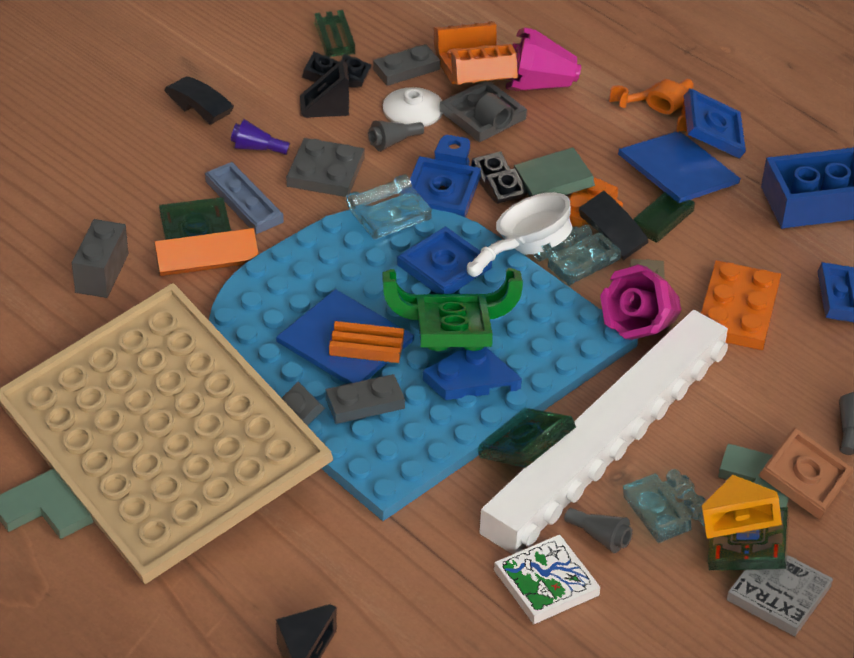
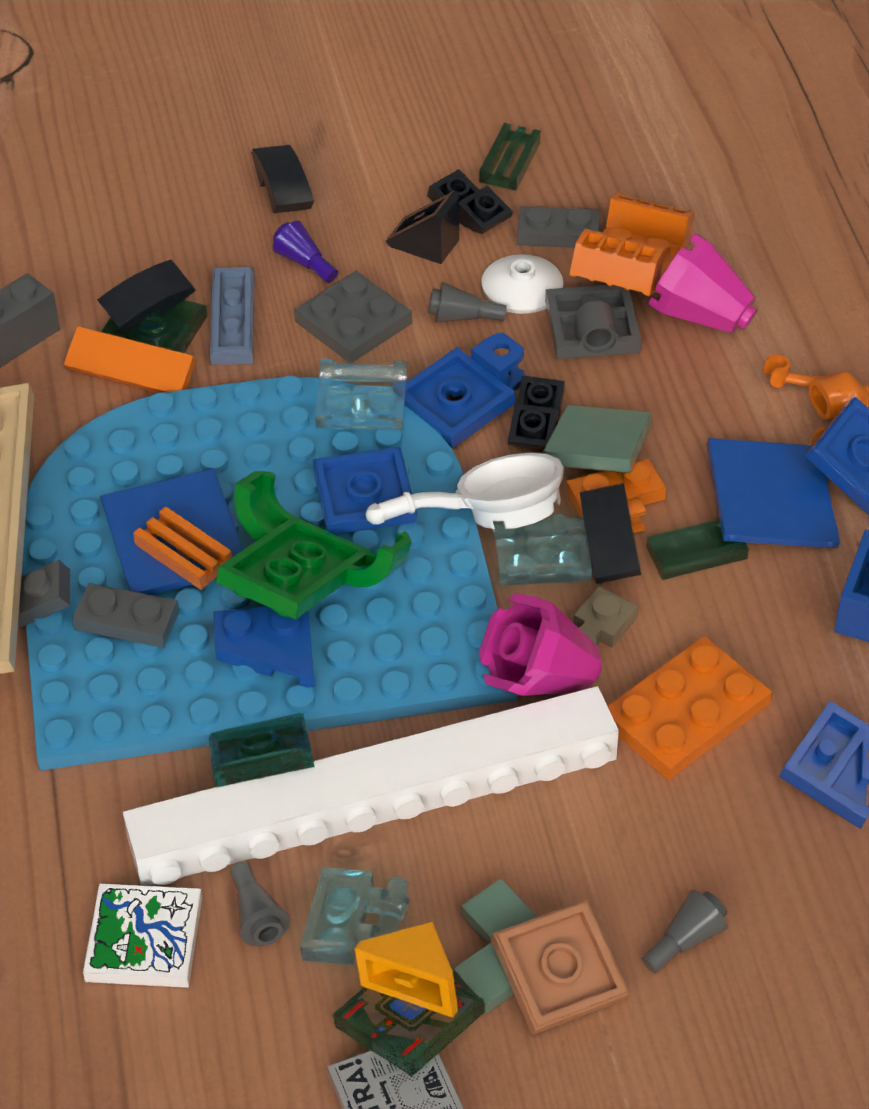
camera: 35 degrees right, 5 degrees up
(185, 203) = (145, 292): none -> black slope

